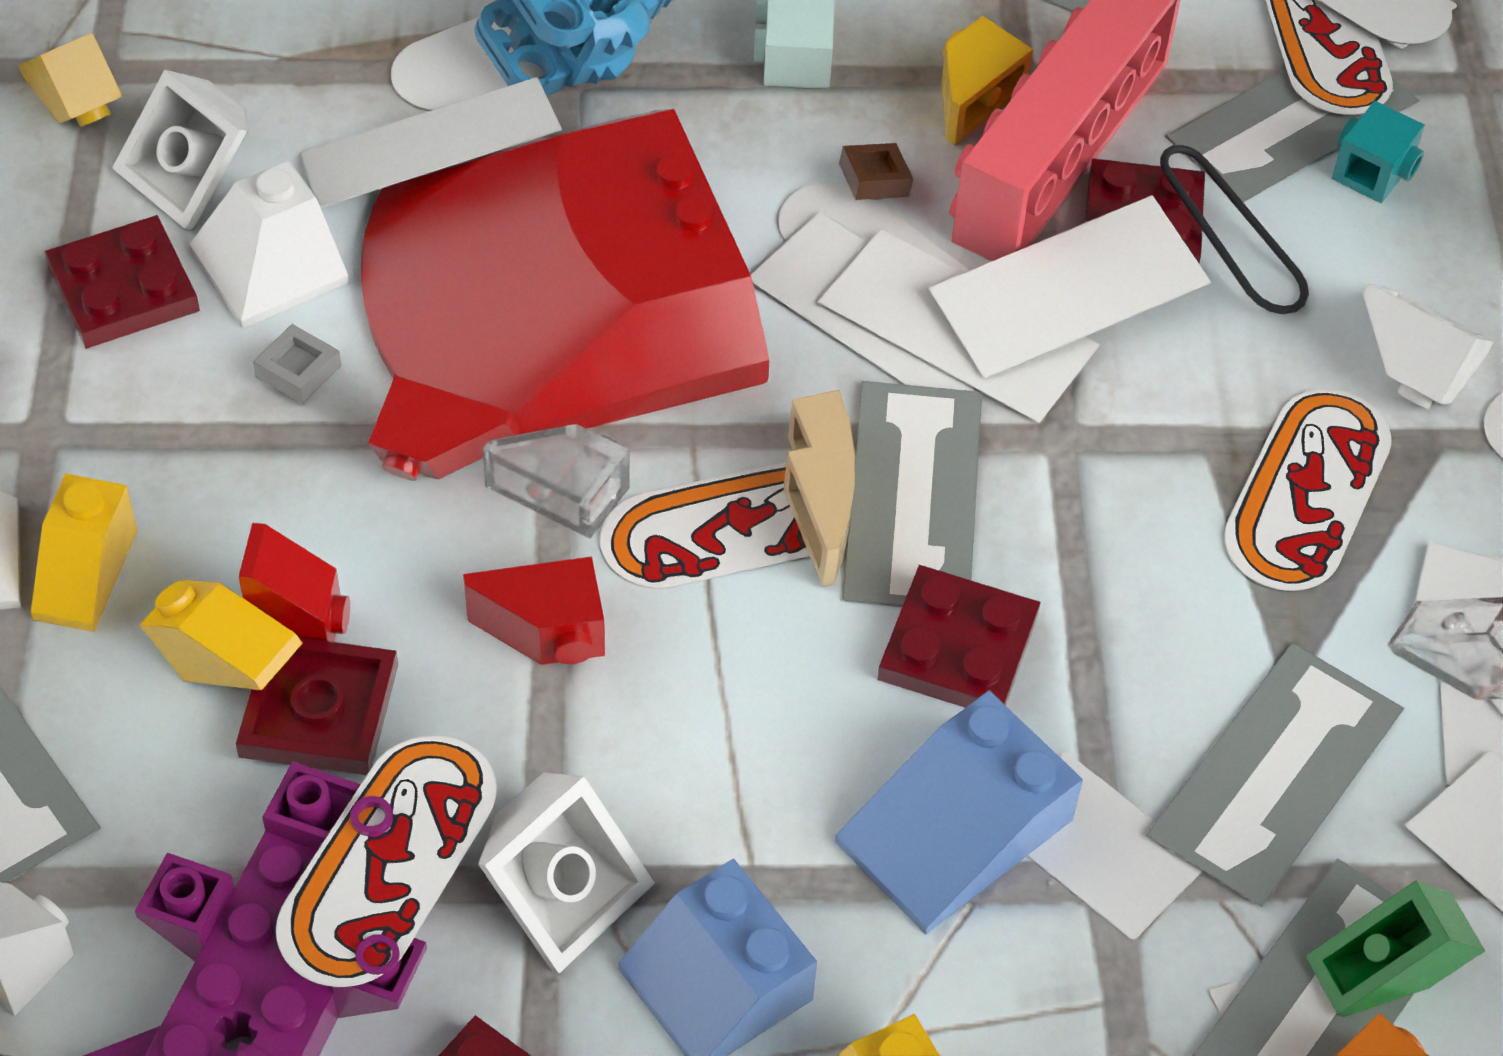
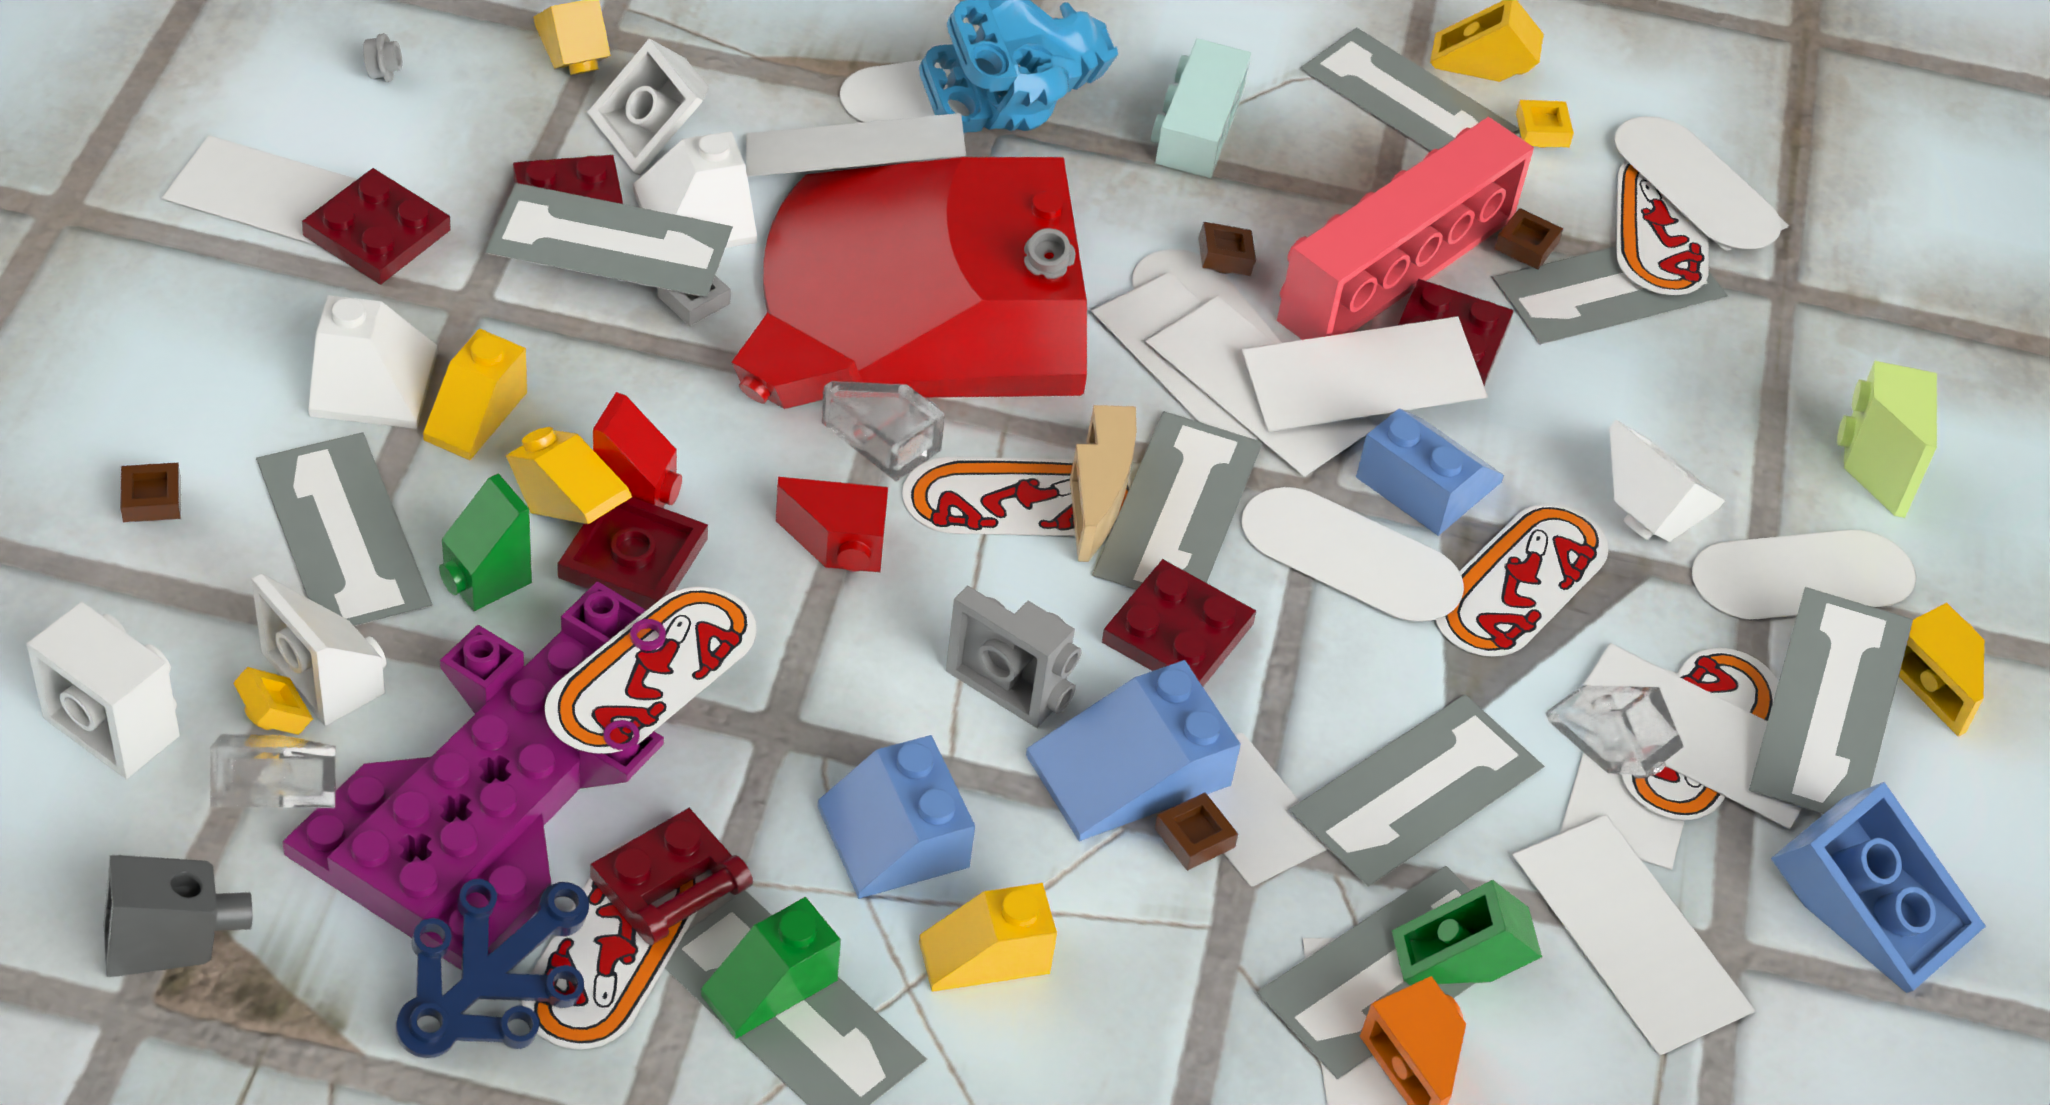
camera: 10 degrees right, 5 degrees down
(150, 745) = (488, 546): none -> green slope
(183, 322) = (610, 240): none -> light grey sticker
(562, 866) = (793, 715): white slope -> none
(700, 218) = (1053, 242): none -> light grey plate
(796, 736) = (1011, 656): none -> light grey plate
(979, 75) = (1339, 184): yellow slope -> none
(1056, 892) = (1196, 831): none -> reddish brown plate
(1119, 503) = (1353, 554): none -> white sticker
(1169, 387) = (1424, 471): none -> medium blue slope
(1194, 84) = (1528, 238): none -> reddish brown plate
(1248, 215) = (1540, 353): black piece -> none
(1378, 151) = (1672, 326): teal brick -> none

